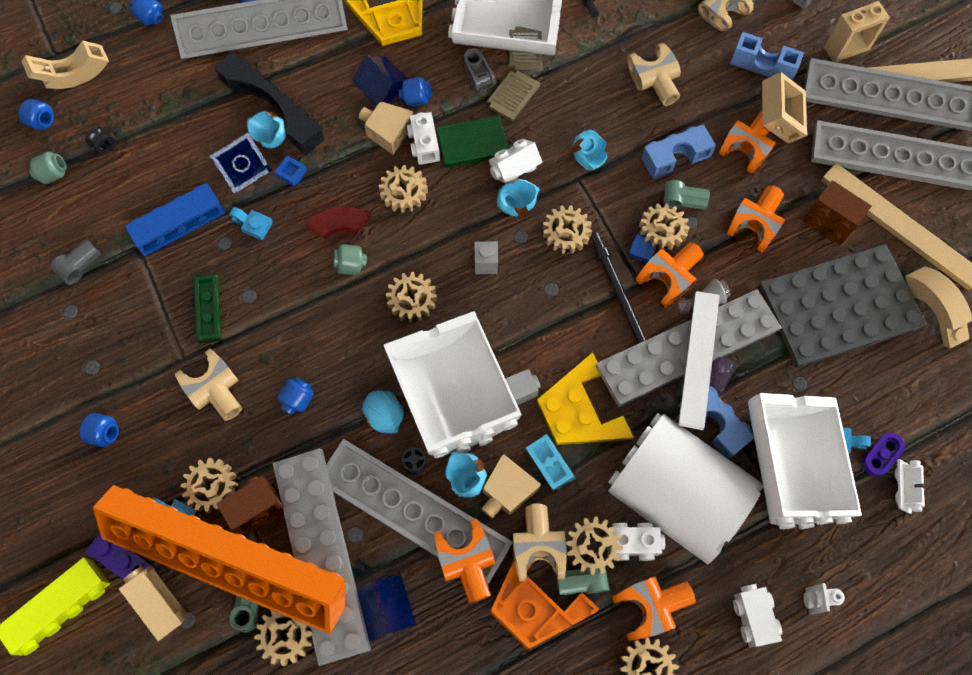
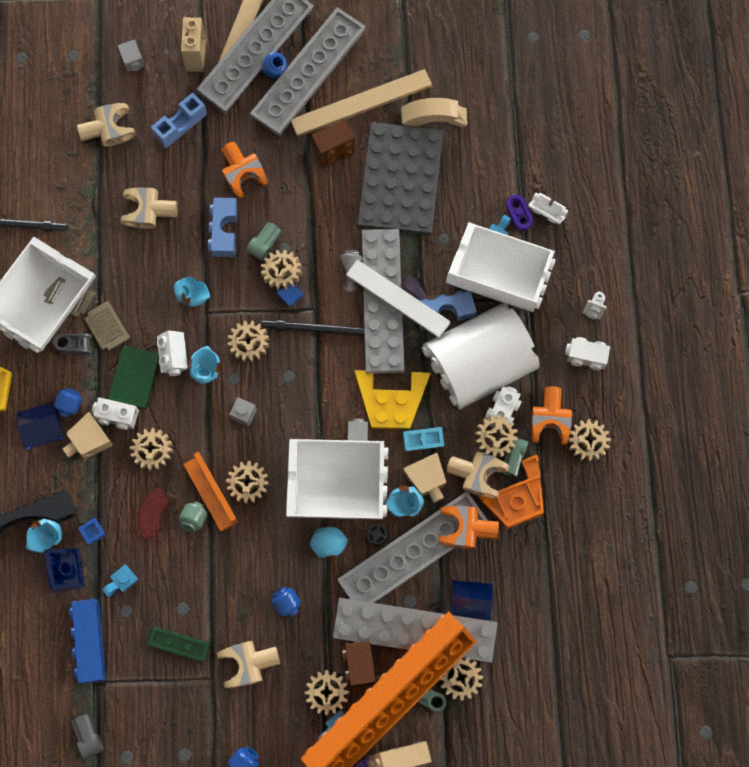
camera: 65 degrees left, 5 degrees up
(384, 266) = (210, 492): none -> orange fence
(672, 271) = (319, 281): orange connector -> none
(760, 216) = (307, 197): orange connector -> none
(784, 108) = (229, 132): tan window -> none
(885, 117) = (274, 65): none -> blue head

